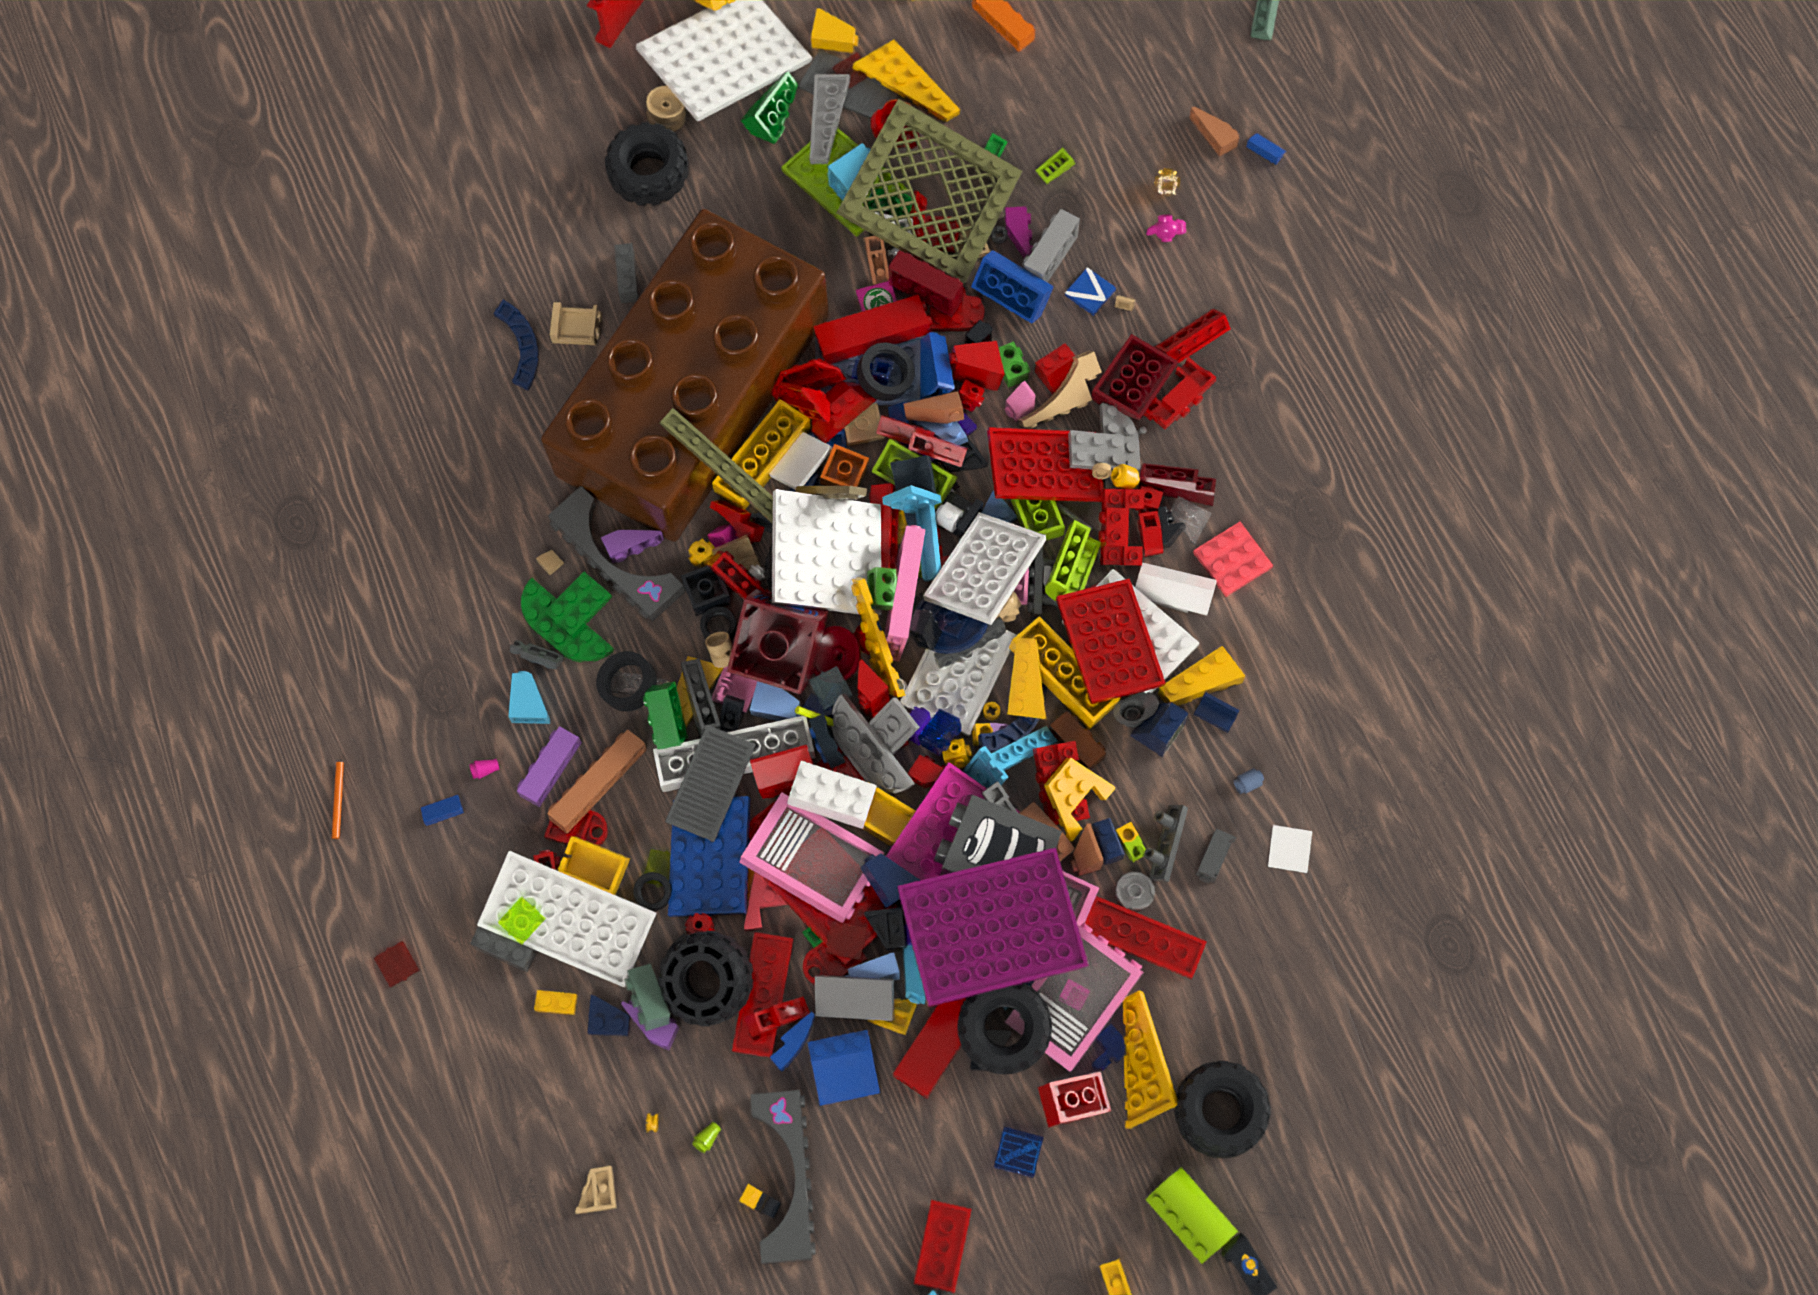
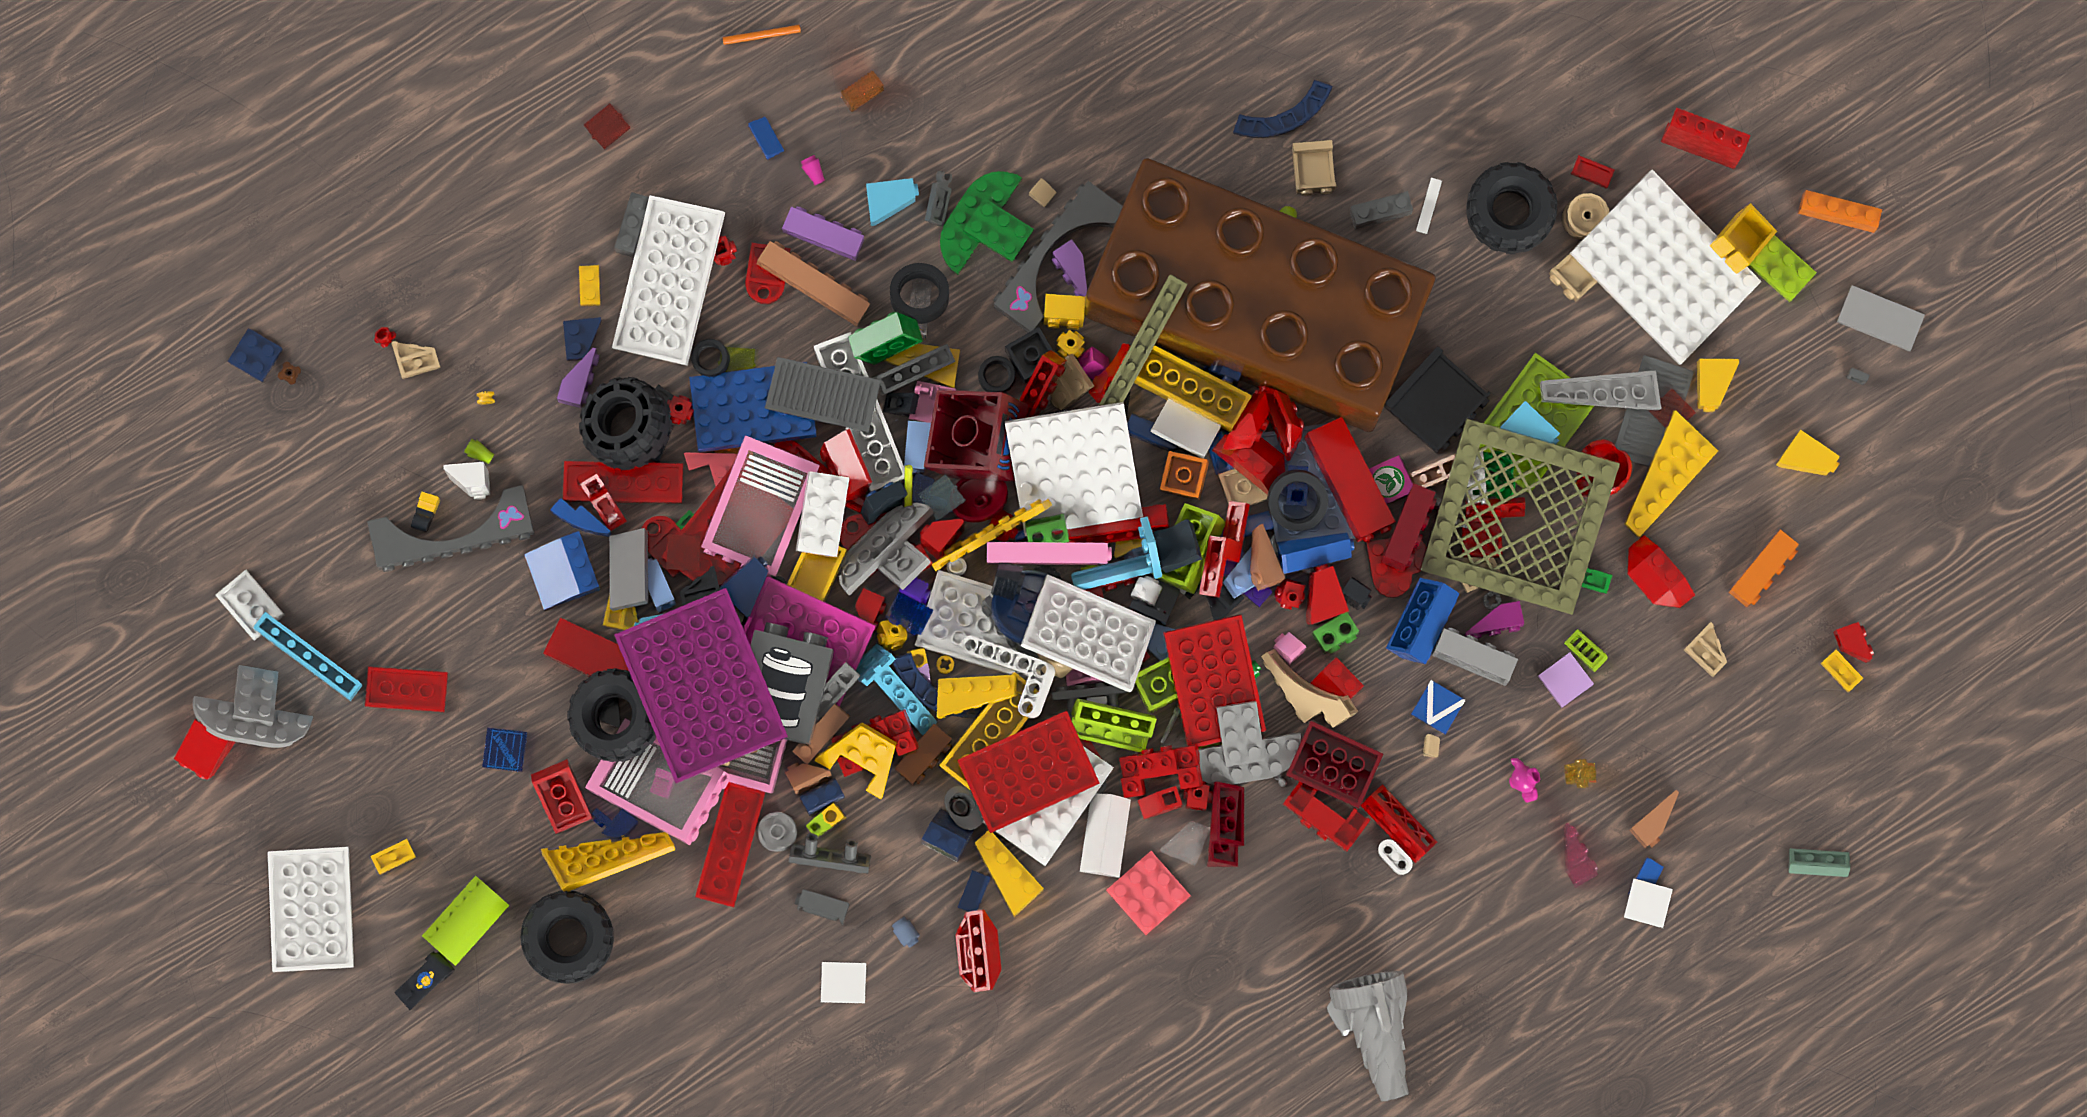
camera: 75 degrees right, 10 degrees up
(415, 710) = (862, 91): none -> clear orange brick
(521, 920) = (659, 237): clear neon green piece -> none
(564, 1221) = (384, 336): none -> red plate
(594, 865) = (726, 296): yellow piece -> none
(626, 103) = (1592, 171): none -> red tile
(629, 237) = (1429, 205): none -> white sticker
(647, 997) = (601, 370): sand green brick -> none
(669, 552) = (1064, 311): none -> yellow brick
(715, 129) = (1572, 278): none -> tan panel
(720, 648) = (968, 379): tan wheel -> none
(736, 1145) = (471, 478): none -> white slope
(755, 418) = (1224, 373): none -> dark blue wing
(757, 572) = (1053, 403): white plate -> none
(769, 113) = (1603, 329): green wedge -> none
(818, 244) = (1437, 401): none -> black panel
(834, 492) = (1142, 466): dark tan wing -> none
(994, 100) = (1657, 575): none -> red wedge
(1006, 637) = (1016, 663): none -> white beam
(1069, 72) = (1707, 650): none -> tan wing
(1079, 186) = (1565, 680): none -> lavender tile
(1101, 470) = (1216, 740): tan tile -> none
(1125, 477) = (1213, 766): yellow head -> none
(1170, 531) = (1166, 820): black slope -> none
(1222, 344) = (1395, 857): none -> white plate
(1241, 198) = (1577, 863): none -> clear pink slope
(1276, 716) = (978, 951): none -> red wedge
(1287, 147) = (1648, 903): none -> white sticker
(1368, 370) = (1374, 1012): none -> light grey cone

